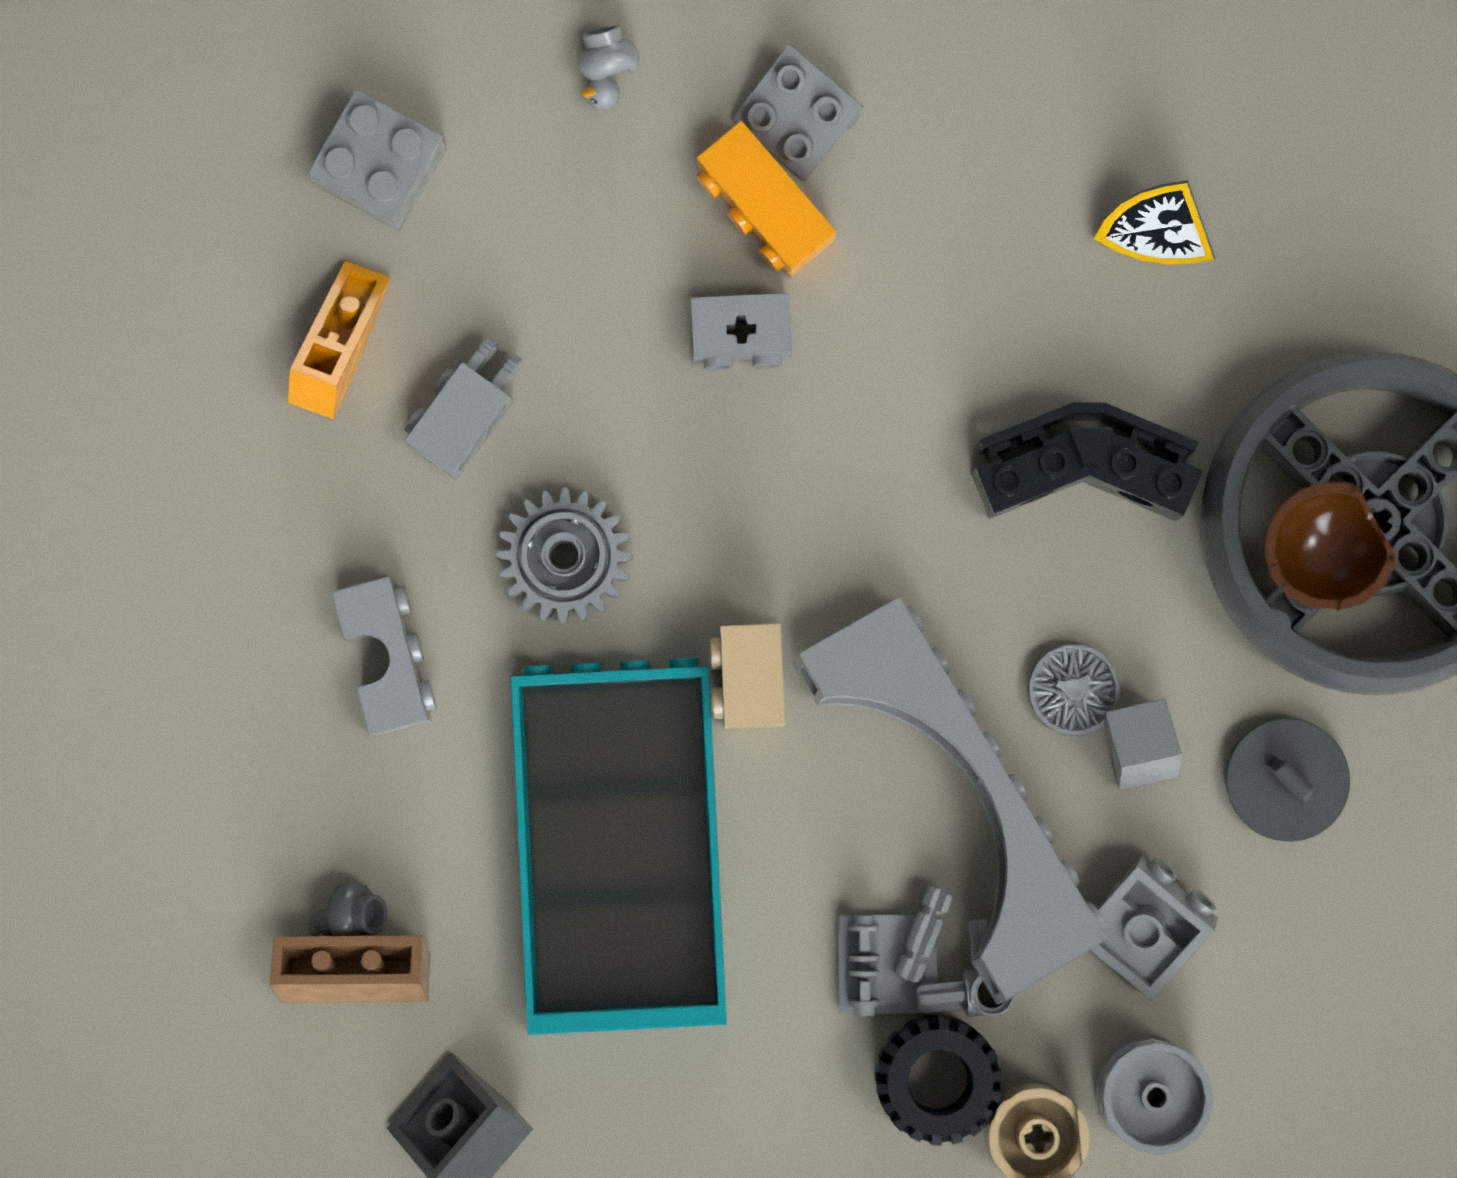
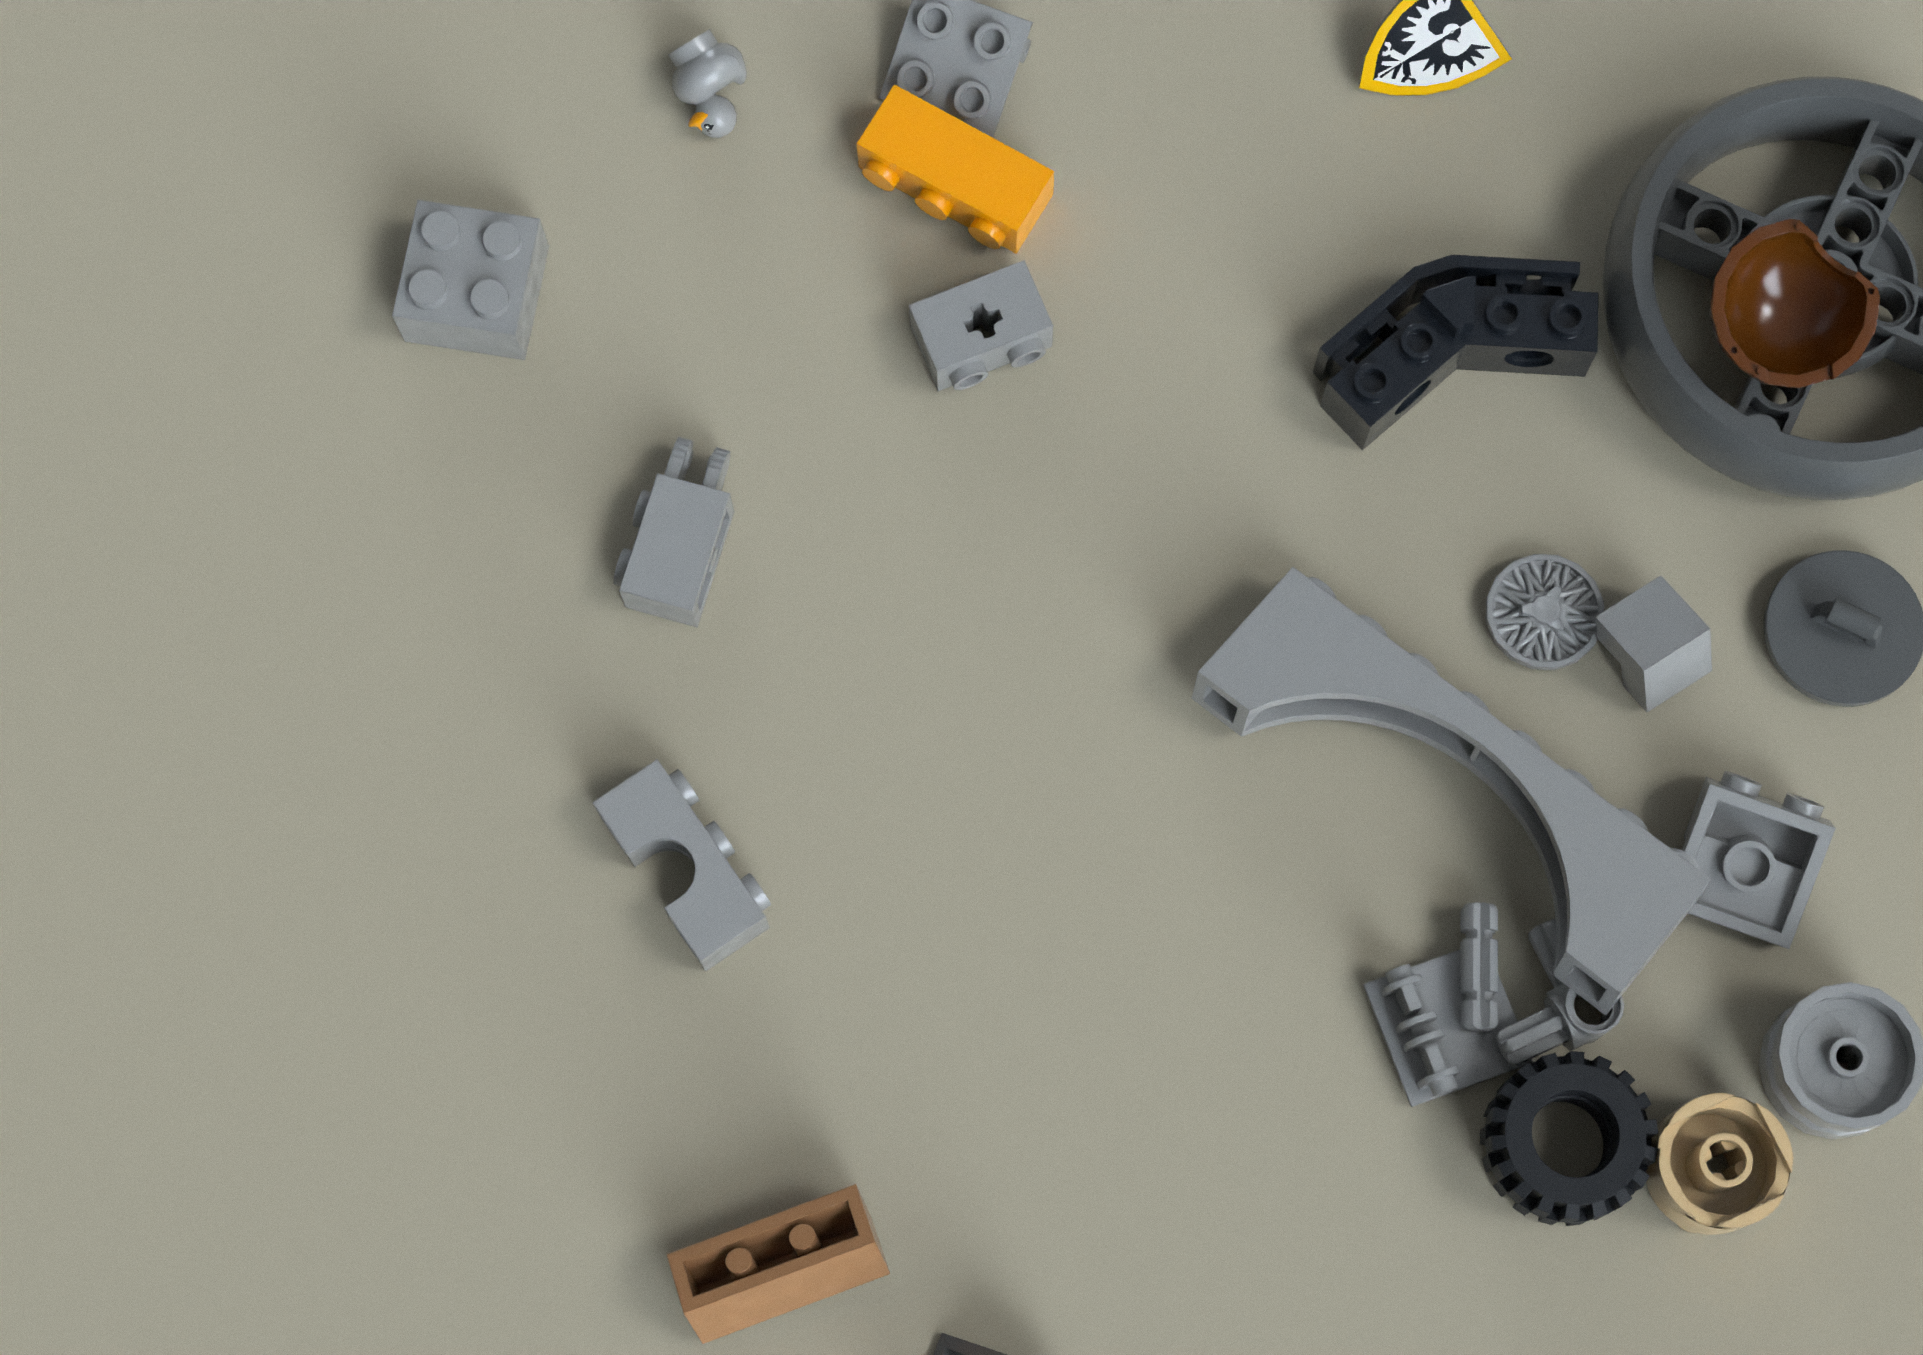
camera: 20 degrees left, 10 degrees down
(336, 340) = (493, 508): light orange slope -> none
(350, 912) = (752, 1192): dark grey animal -> none
(542, 533) = (874, 703): light grey gear -> none
(618, 848) = (1063, 997): clear smoke window -> none
(751, 676) = (1149, 724): tan brick -> none

